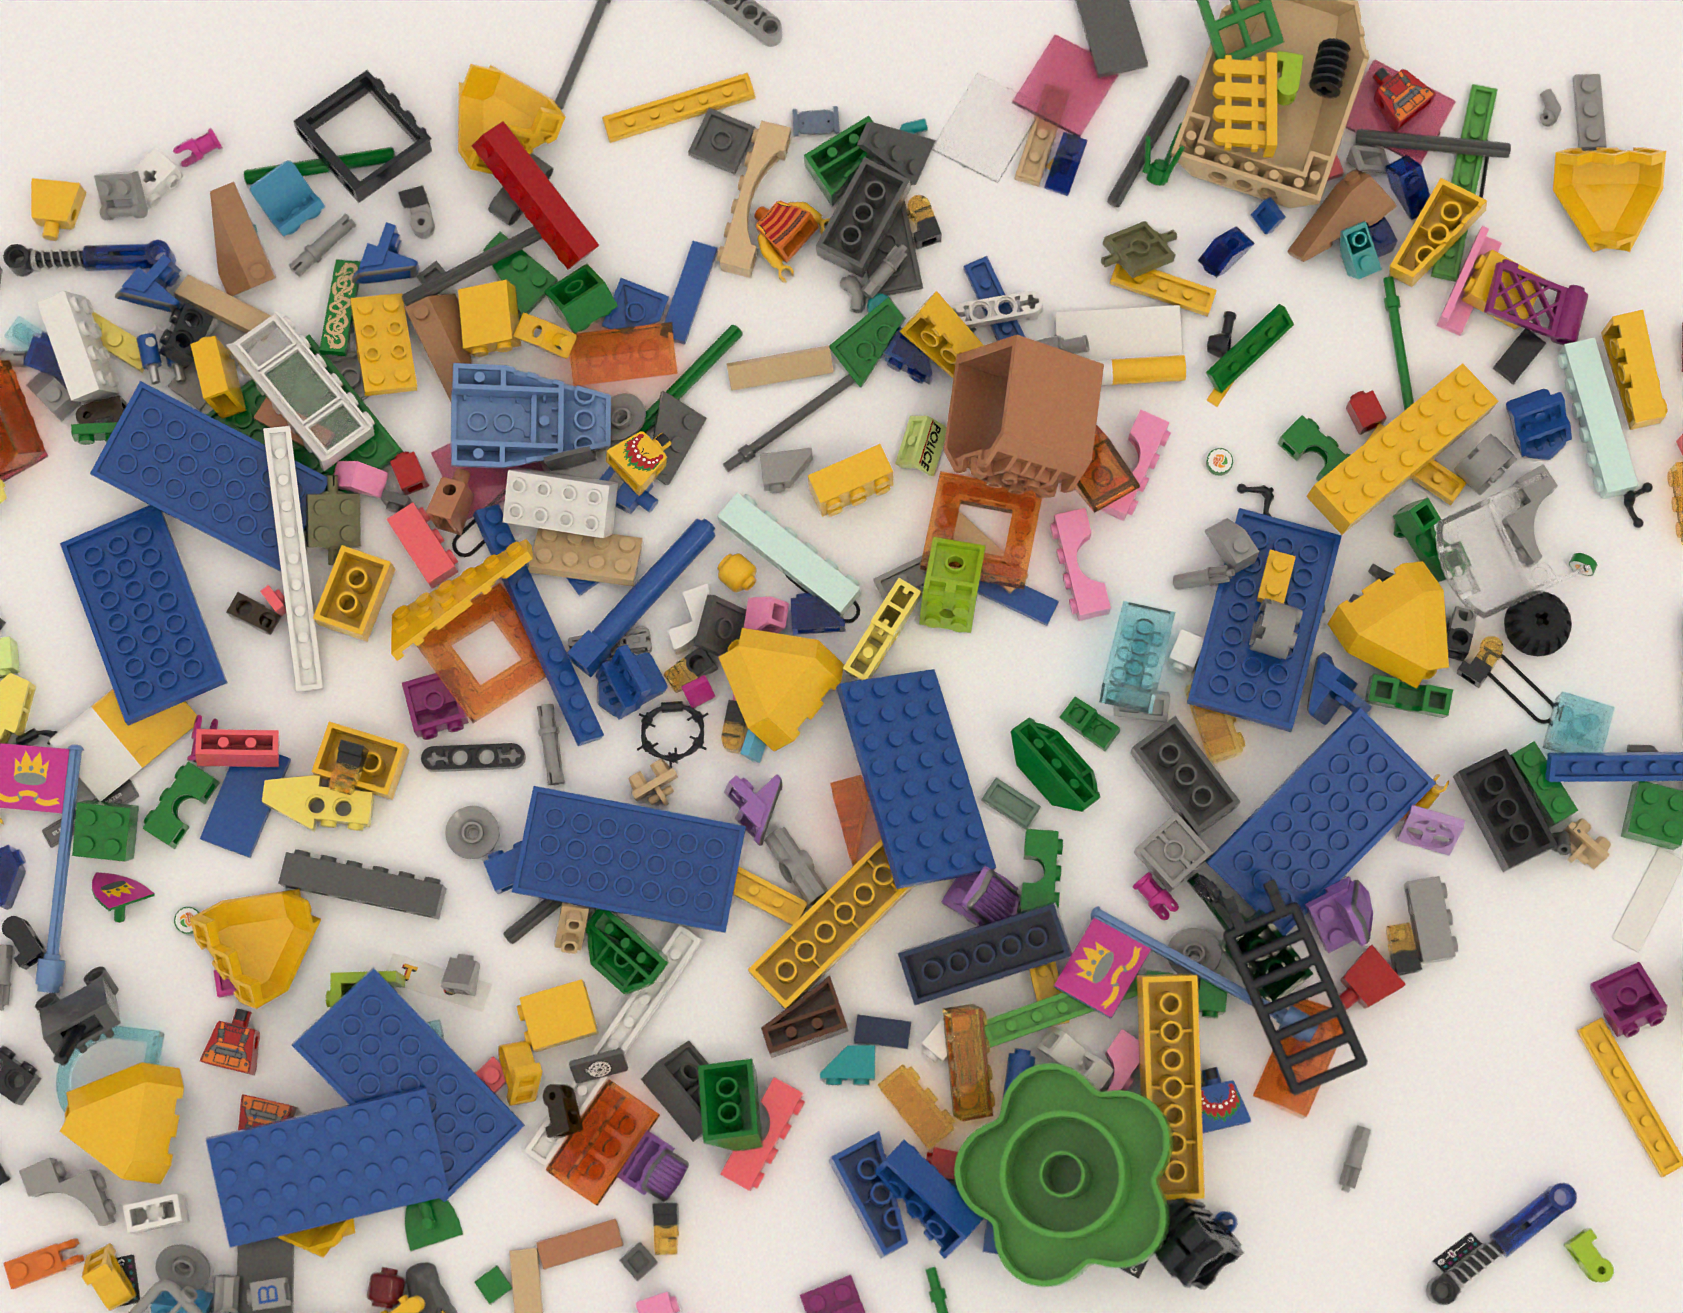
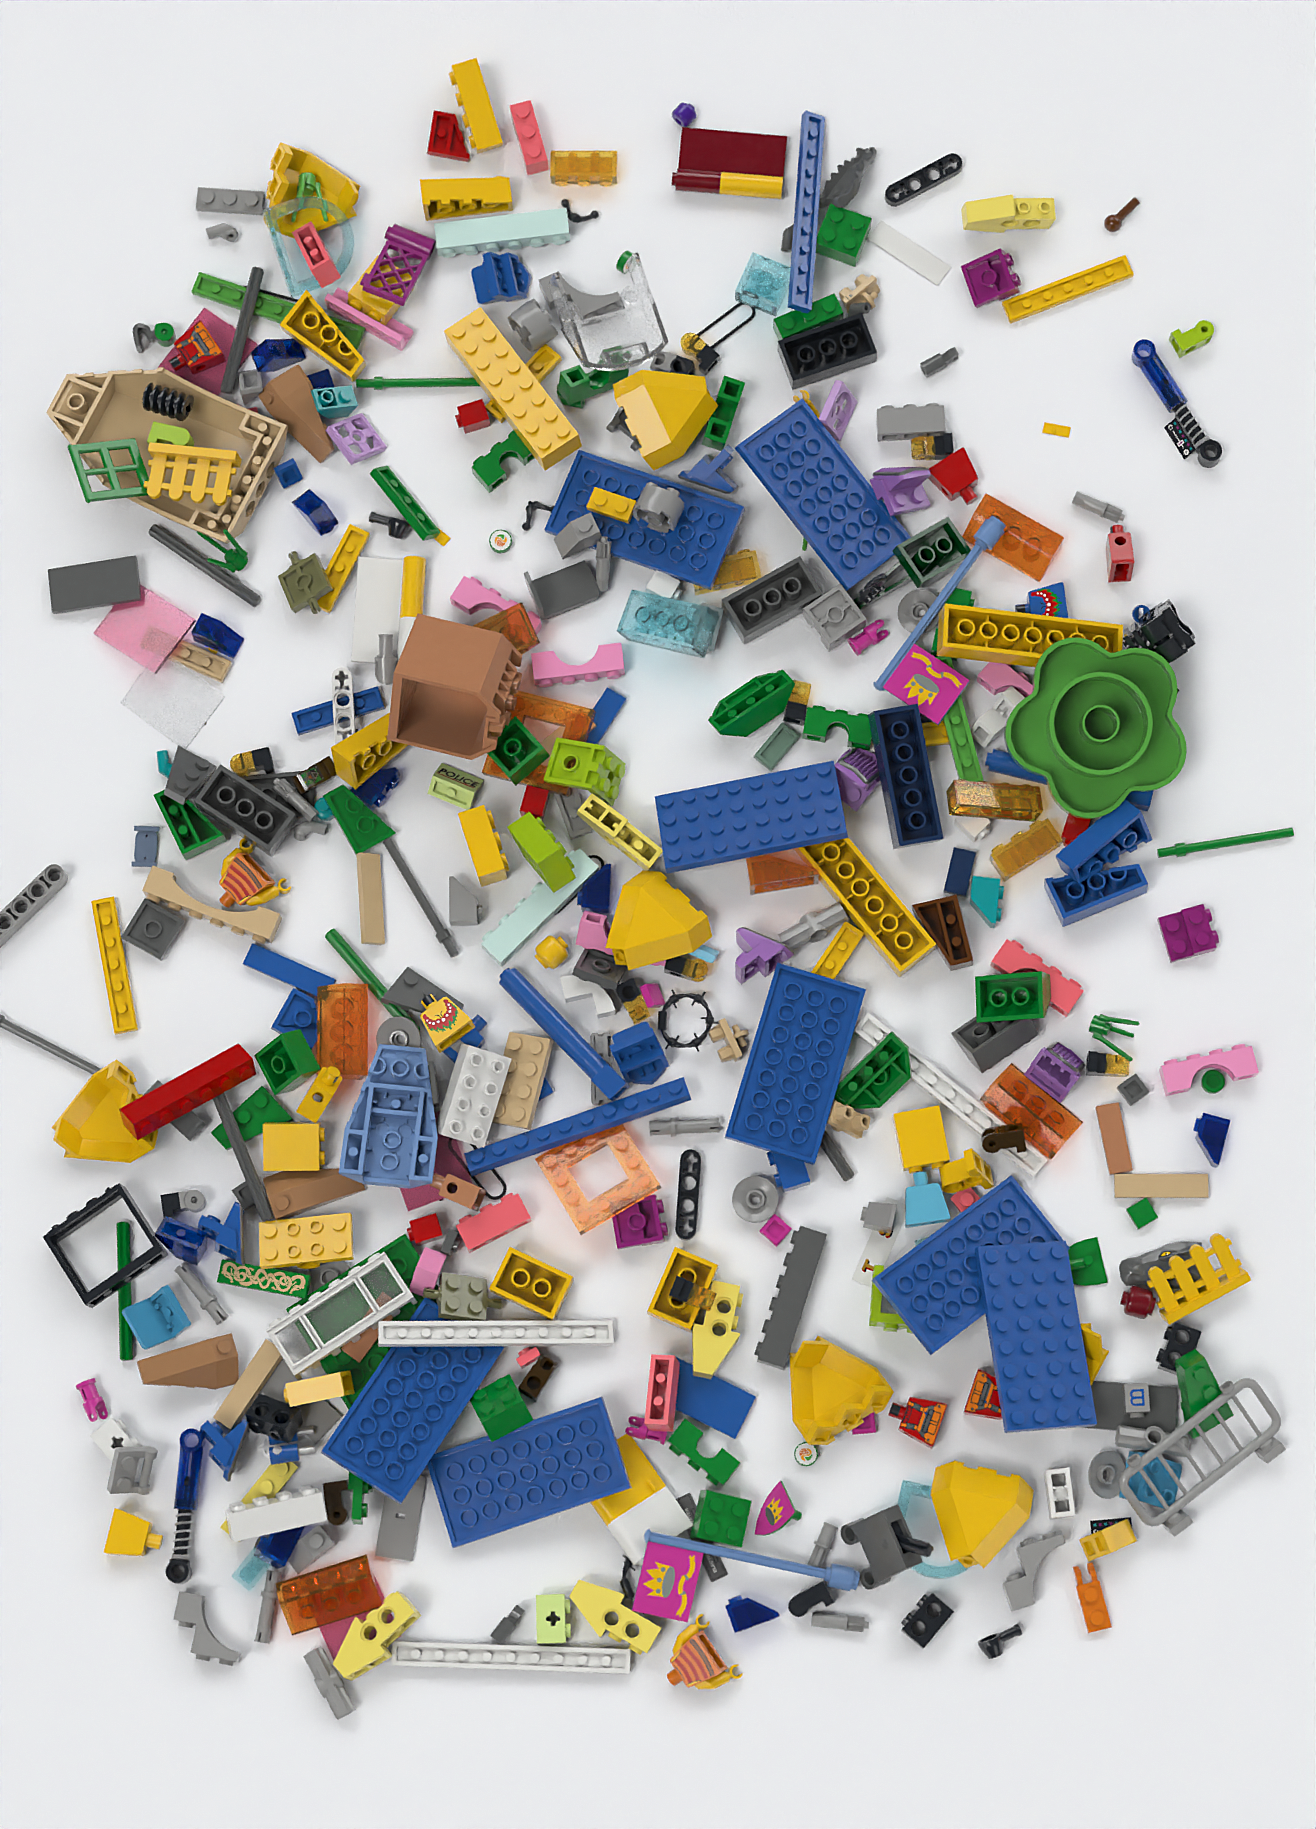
camera: 85 degrees left, 0 degrees up
(74, 487) = (399, 1535): none -> light grey piece
(86, 949) = (822, 1545): none -> light grey axle
(211, 574) = (500, 1408): none -> green brick
(374, 214) = (182, 1240): none -> clear blue slope
(441, 860) = (775, 1230): none -> dark pink tile
(453, 597) = (551, 1197): yellow wing -> none
(483, 1027) = (924, 1203): none -> medium azure torso
(598, 1065) = (968, 1105): dark grey slope -> none
(710, 1217) = (1101, 1026): none -> green plant
(846, 544) = (542, 852): none -> lime brick
(908, 534) = (535, 802): none -> red brick
(911, 285) = (315, 775): none -> leg
(962, 503) = (517, 752): none -> green brick
(1066, 820) = (797, 704): none -> leg
(1090, 724) = (715, 674): green slope -> none
(1167, 534) = (562, 590): none -> dark grey piece
(1264, 1010) = (961, 503): black bar -> none
(1297, 1187) = (1119, 555): none -> torso
(1331, 299) = (367, 432): none -> lavender piece
(1417, 56) = (162, 333): none -> leg
(1448, 1099) = (1058, 430): none -> yellow piece
(1512, 947) = (938, 362): none -> dark grey bar
(1519, 355) = (438, 287): black tile -> none
(1533, 209) = (316, 254): none -> coral brick
(1535, 639) = (680, 314): black wheel -> none
(1572, 148) = (277, 211): none -> clear light blue window
(1618, 191) = (306, 186): none -> bright green plant

